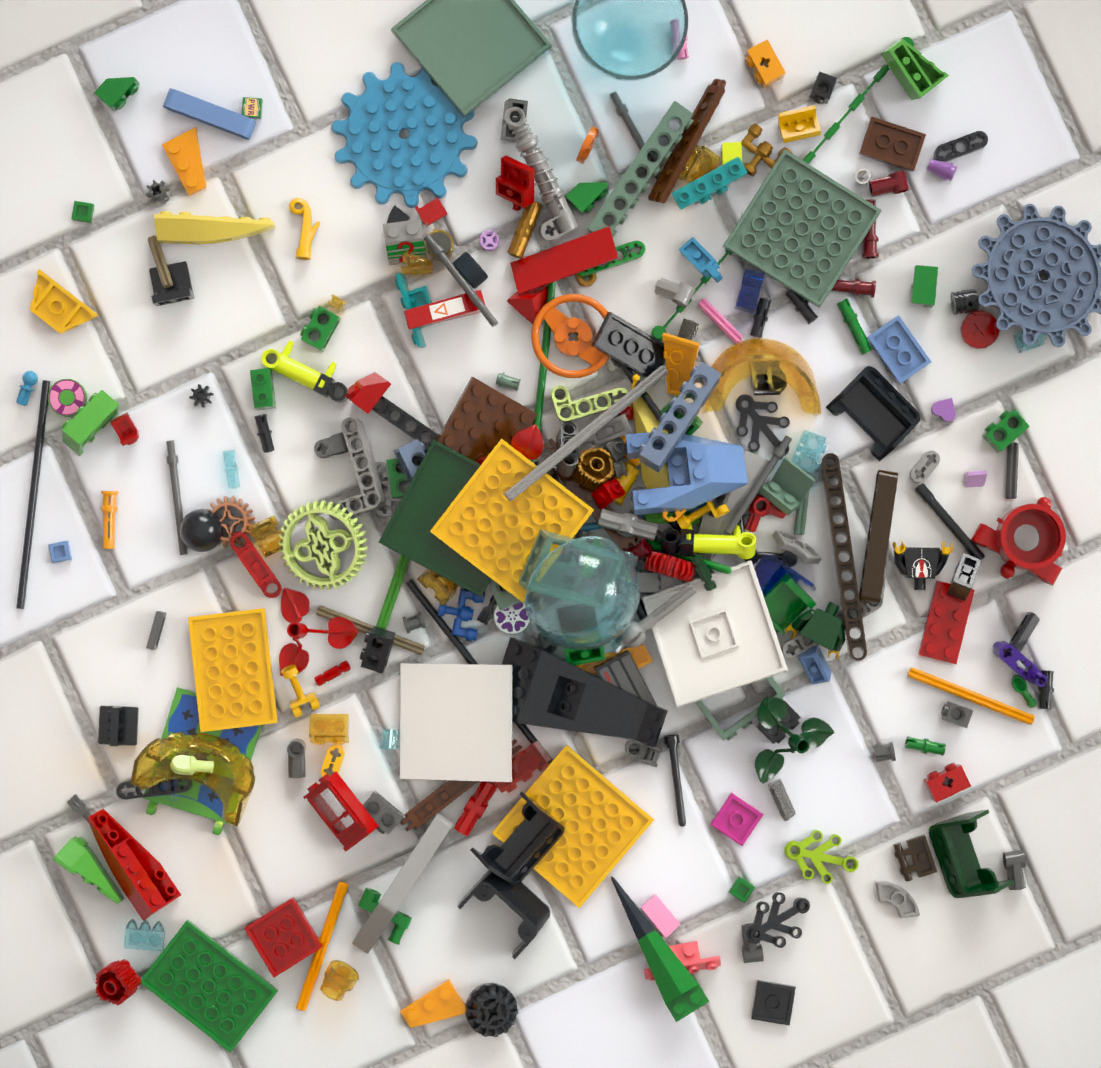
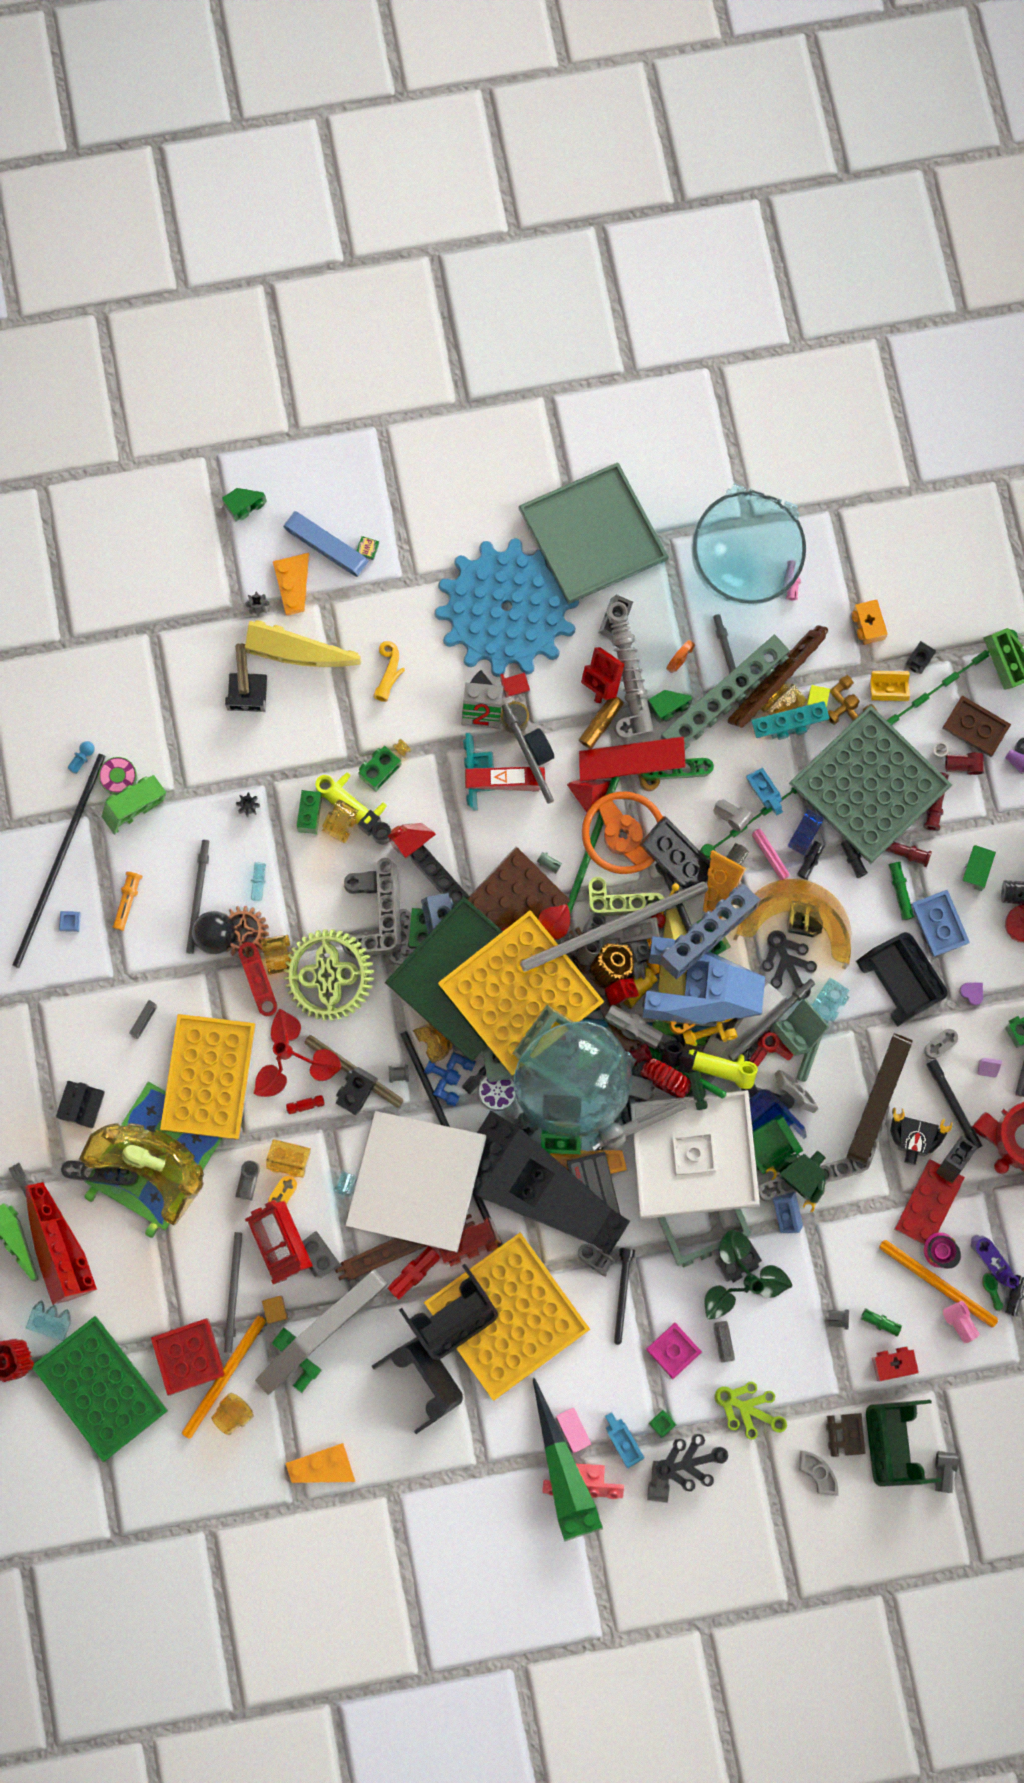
camera: 10 degrees right, 10 degrees down
(58, 306) = (133, 687): yellow wing -> none
(82, 212) = (180, 606): green tile -> none
(125, 429) = (166, 818): red bracket -> none
(264, 433) = (299, 855): black axle -> none
(290, 673) = (264, 1092): yellow bar -> none
(295, 390) = (340, 820): none -> clear yellow cylinder
(316, 903) = (229, 1331): none -> dark grey bar
(353, 874) = (275, 1309): none -> pearl gold panel
(393, 592) = (386, 1037): bright green axle -> none
(418, 266) = (492, 733): clear yellow plant -> none
(491, 238) = (566, 722): lavender wheel -> none
(498, 994) = (365, 1497): black gear -> none
(709, 914) = (623, 1441): none -> dark azure hinge
(773, 1002) = (667, 1549): black tile -> none
(846, 547) = (840, 1120): dark brown beam -> none
(964, 718) = (925, 1305): dark grey brick -> none
(968, 665) = (942, 1251): none -> dark pink piece
(997, 723) = (958, 1316): none -> bright pink piece
(1024, 631) = (1007, 1230): black slope -> none

